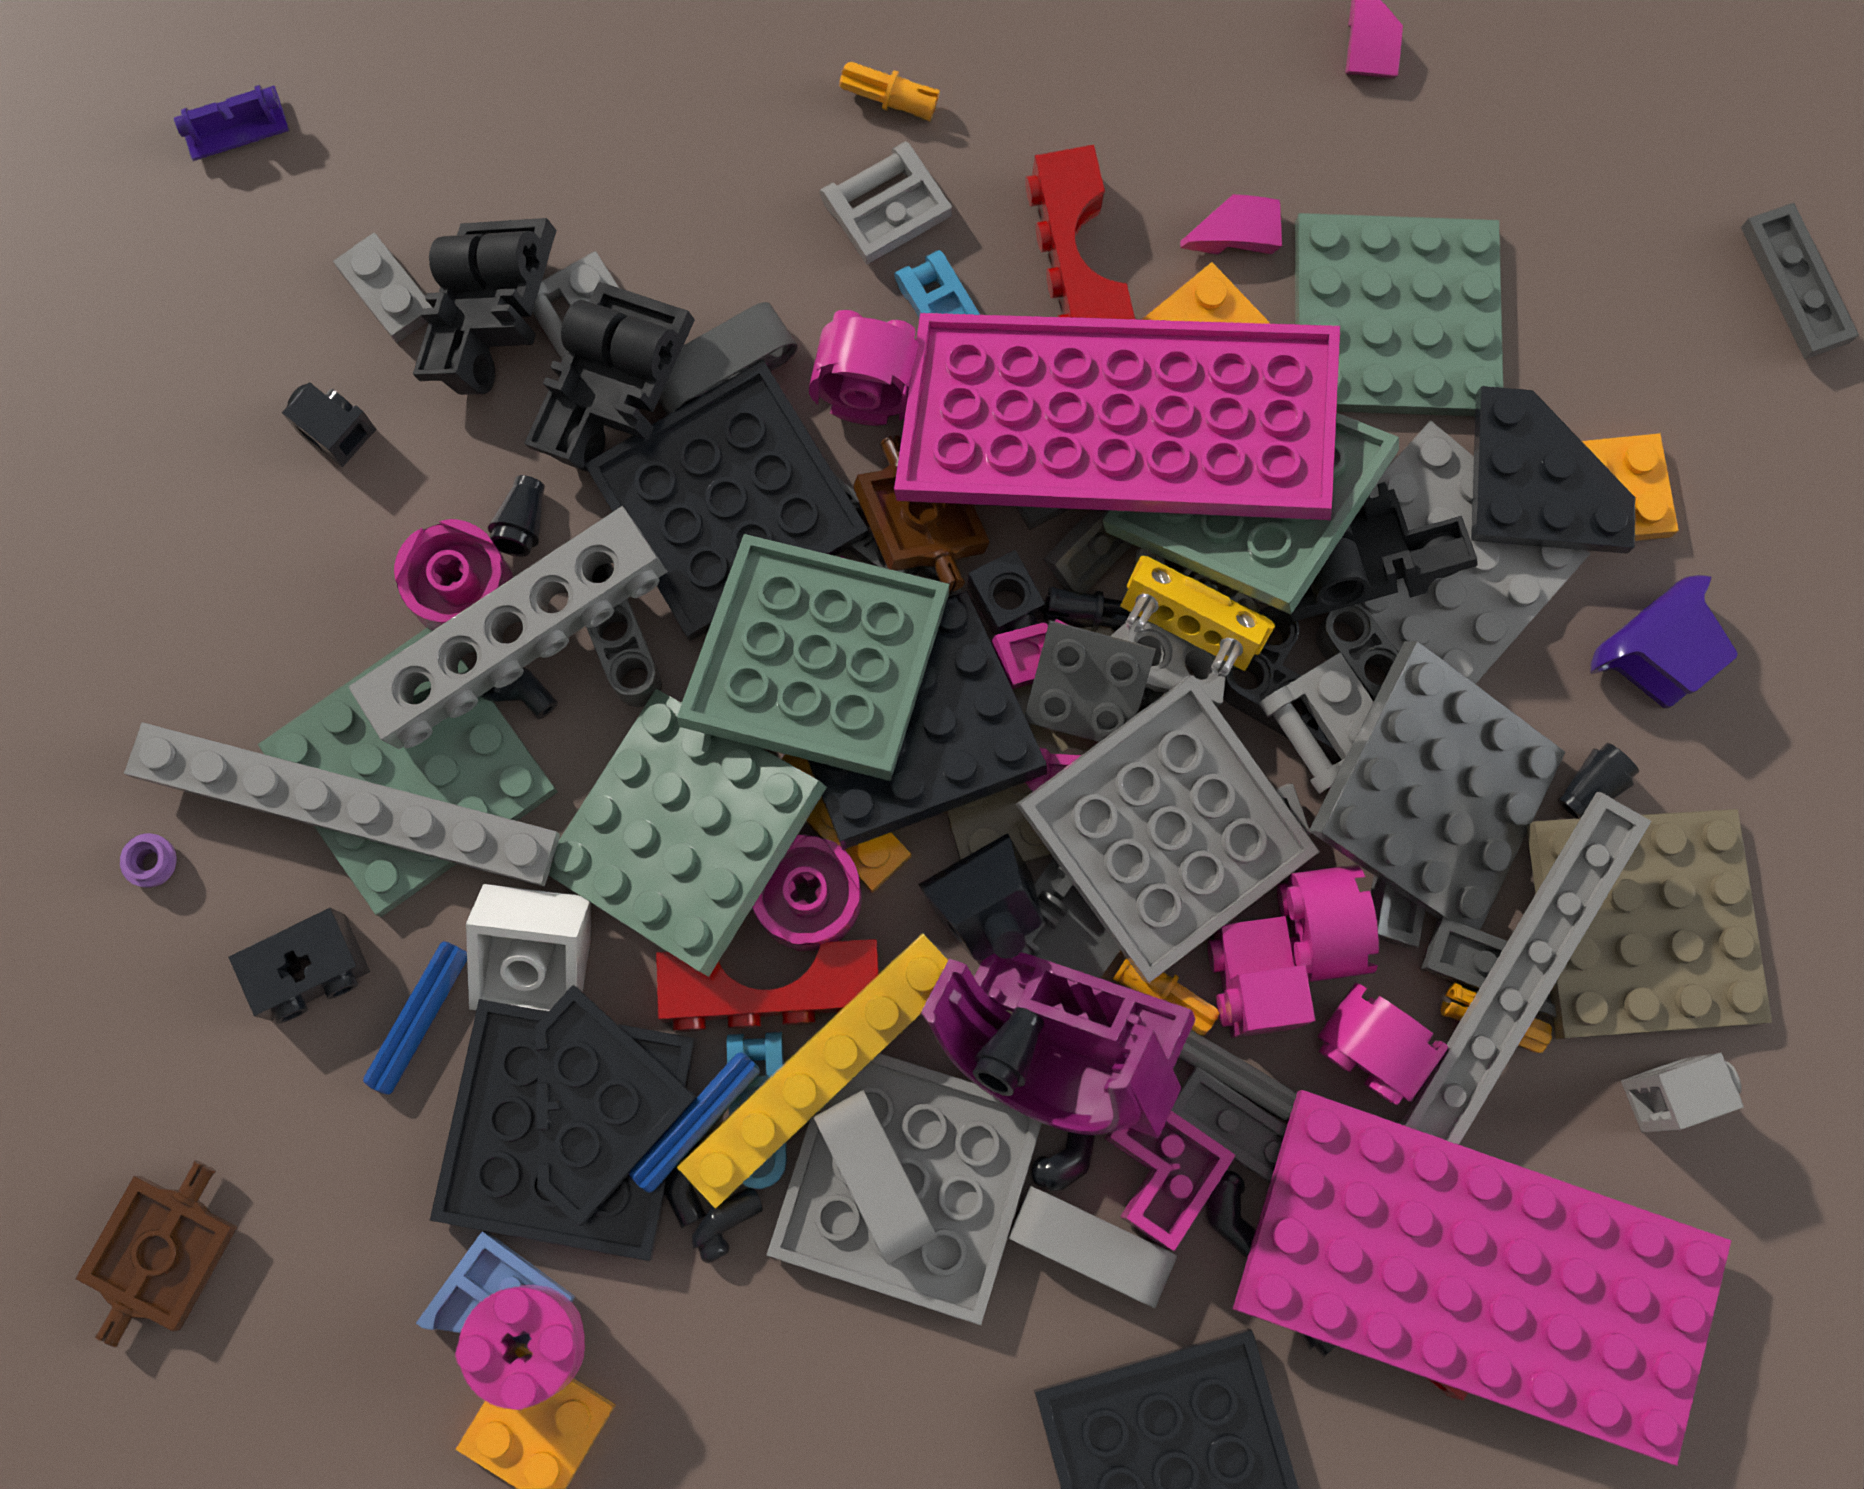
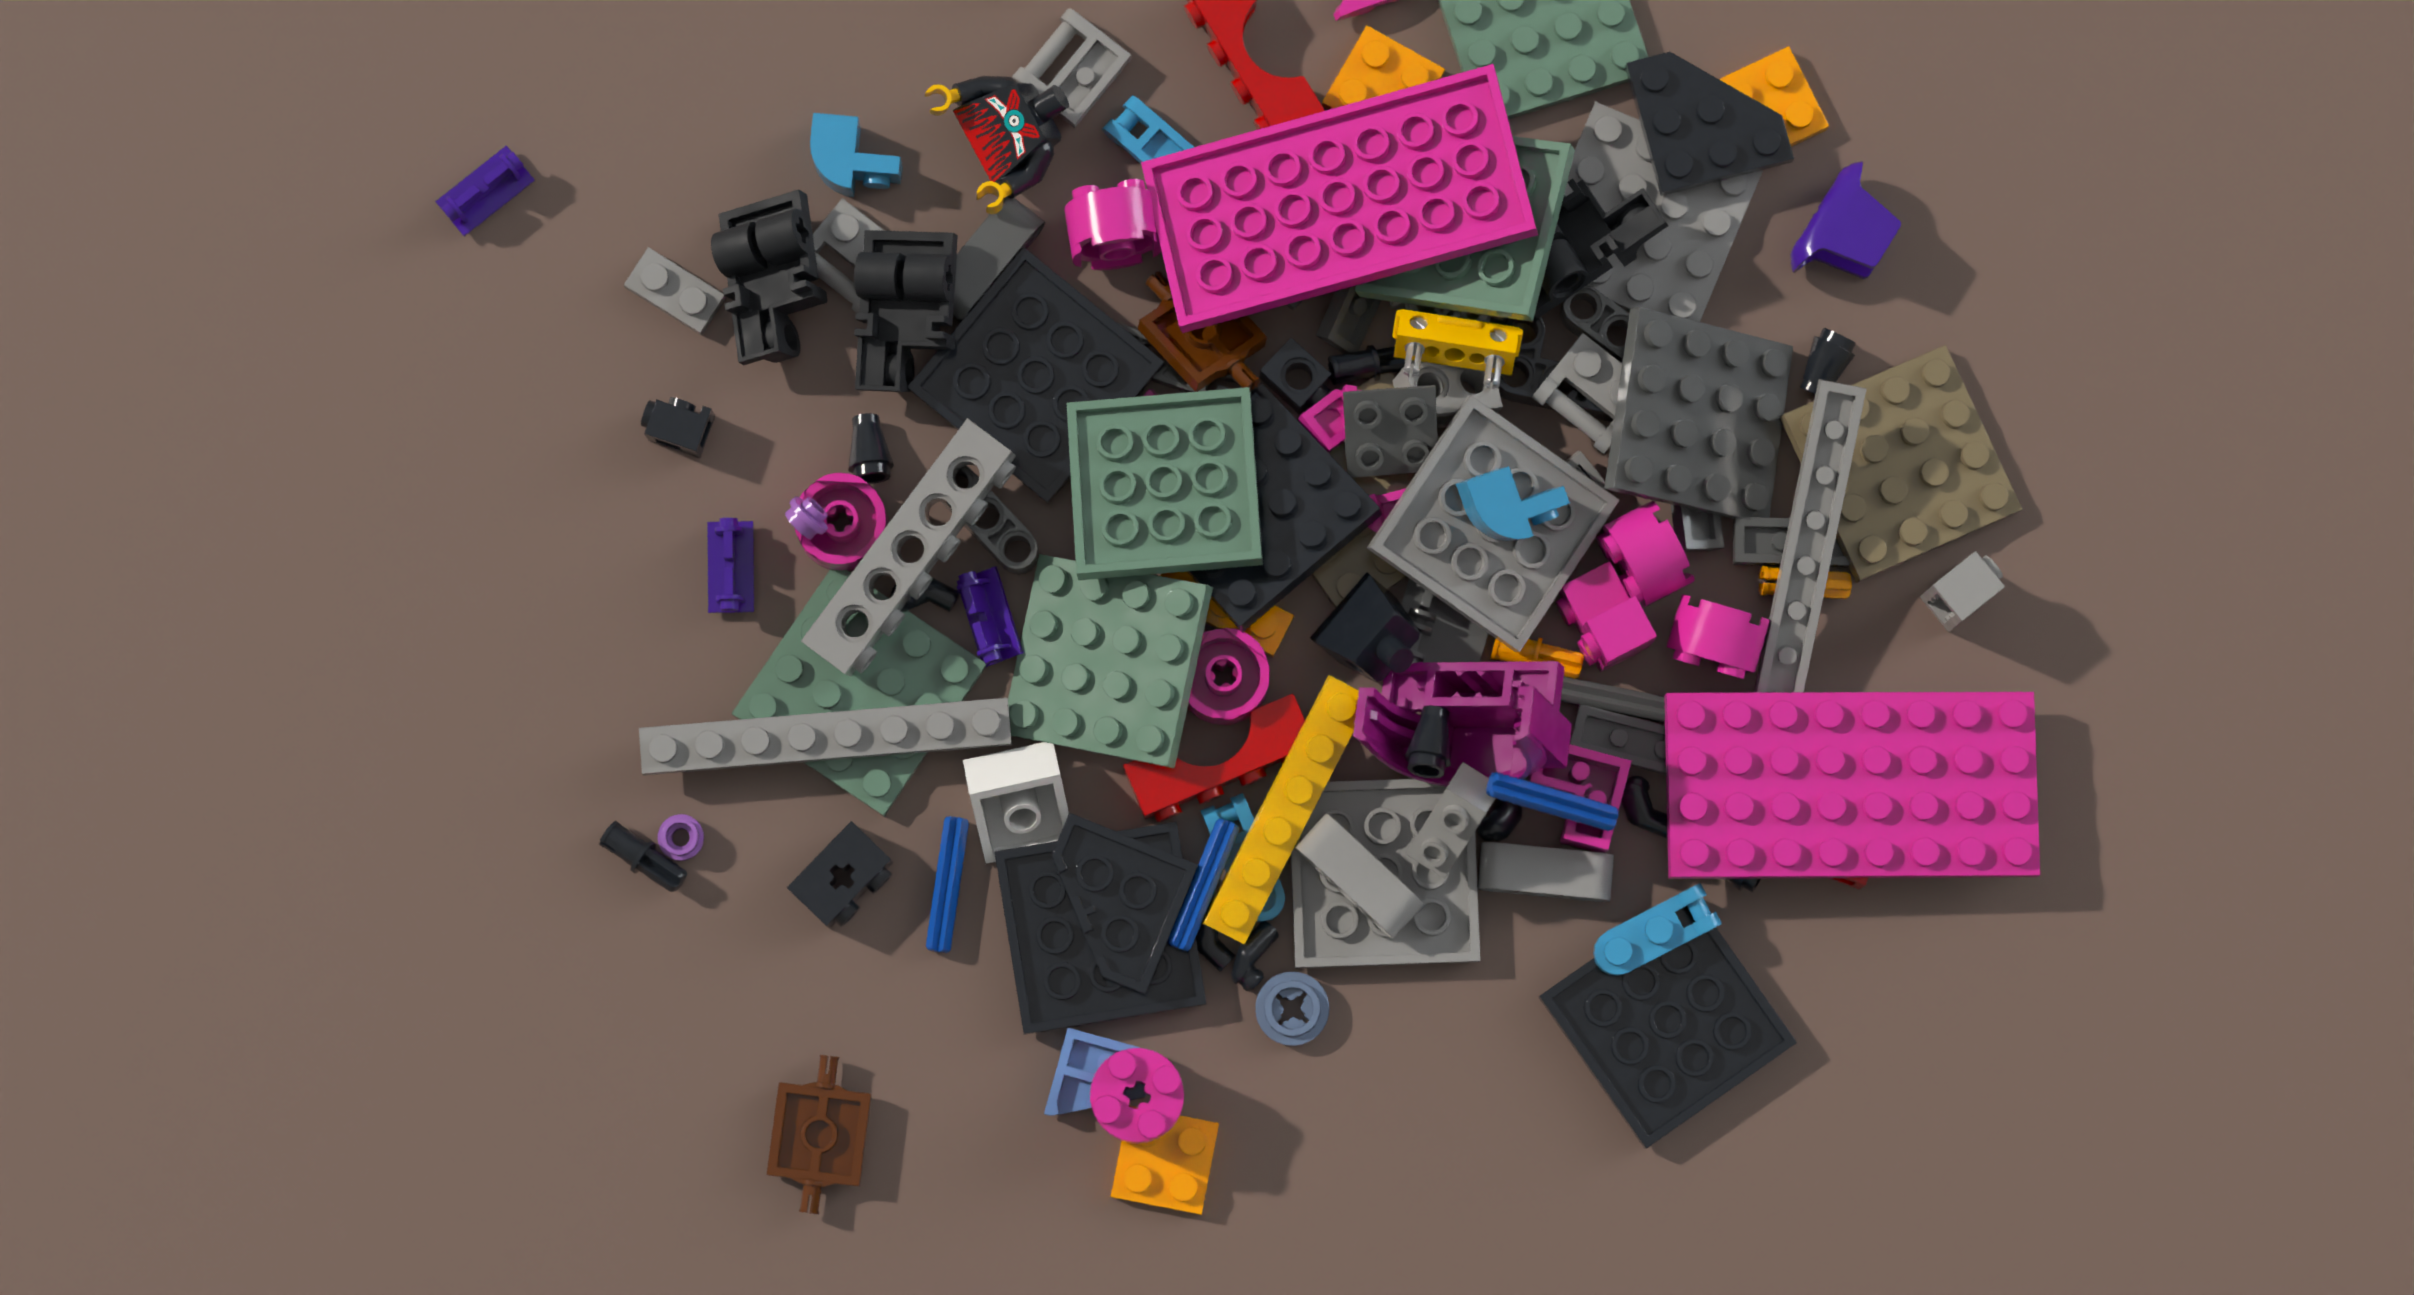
camera: 20 degrees left, 5 degrees up
(96, 867) = (643, 857): none -> black axle
(324, 588) = (730, 566): none -> dark purple hinge
(407, 553) = (807, 517): none -> medium lavender plate
(578, 737) = (989, 616): none -> dark purple hinge
(608, 208) = (838, 160): none -> dark azure brick
(720, 1293) = (1289, 986): none -> sand blue gear
(791, 234) = (1007, 129): none -> torso
(1005, 1152) = (1452, 821): none -> light grey brick
(1127, 1172) = (1552, 801): none -> blue axle
(1181, 813) = (1499, 512): none -> dark azure brick
(1194, 1367) = (1653, 933): none -> dark azure plate

